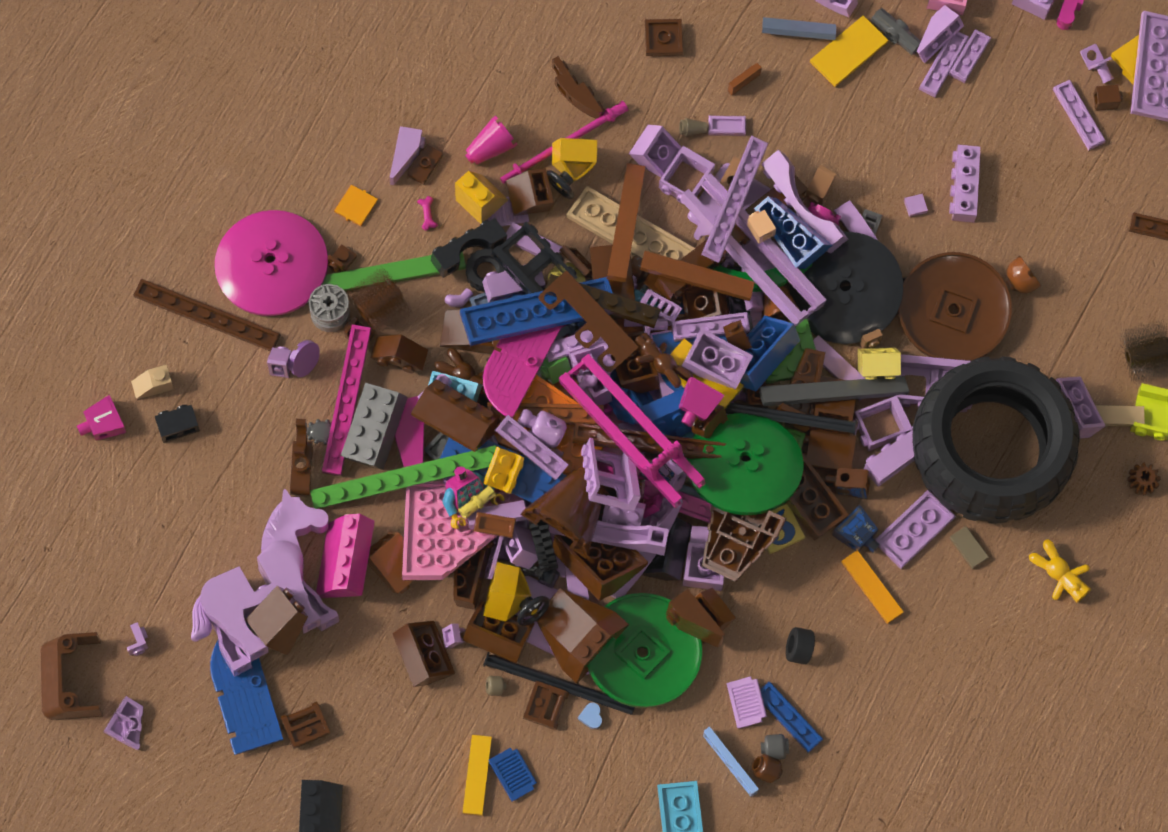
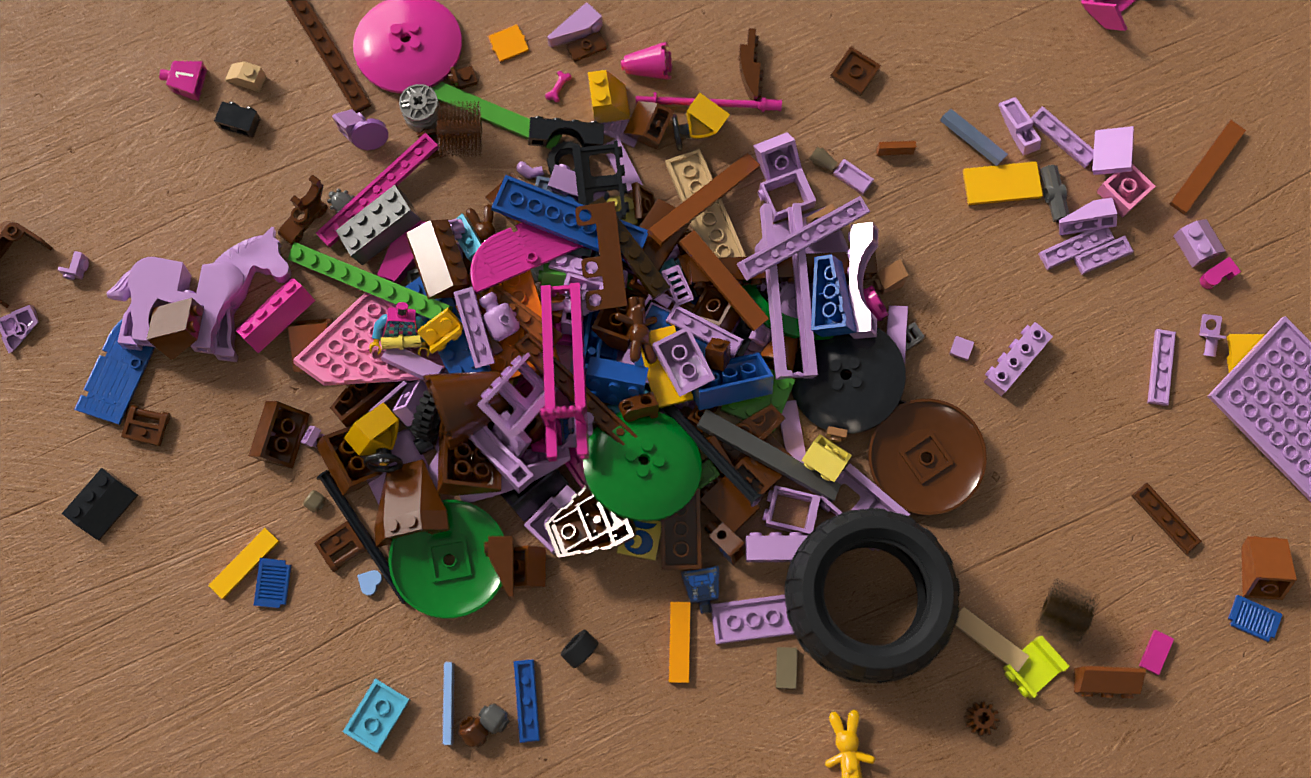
camera: 40 degrees right, 5 degrees up
(400, 352) = (446, 179): reddish brown brick -> none
(494, 524) = (400, 370): dark orange tile -> none
(698, 401) = (636, 385): dark pink torso -> none
(746, 702) = (501, 662): lavender window -> none
(761, 226) = (806, 275): light nougat brick -> none
(1021, 277) = (1005, 470): dark orange cylinder -> none
(1085, 411) = (972, 617): lavender slope -> none
(1107, 97) = (1197, 369): reddish brown brick -> none

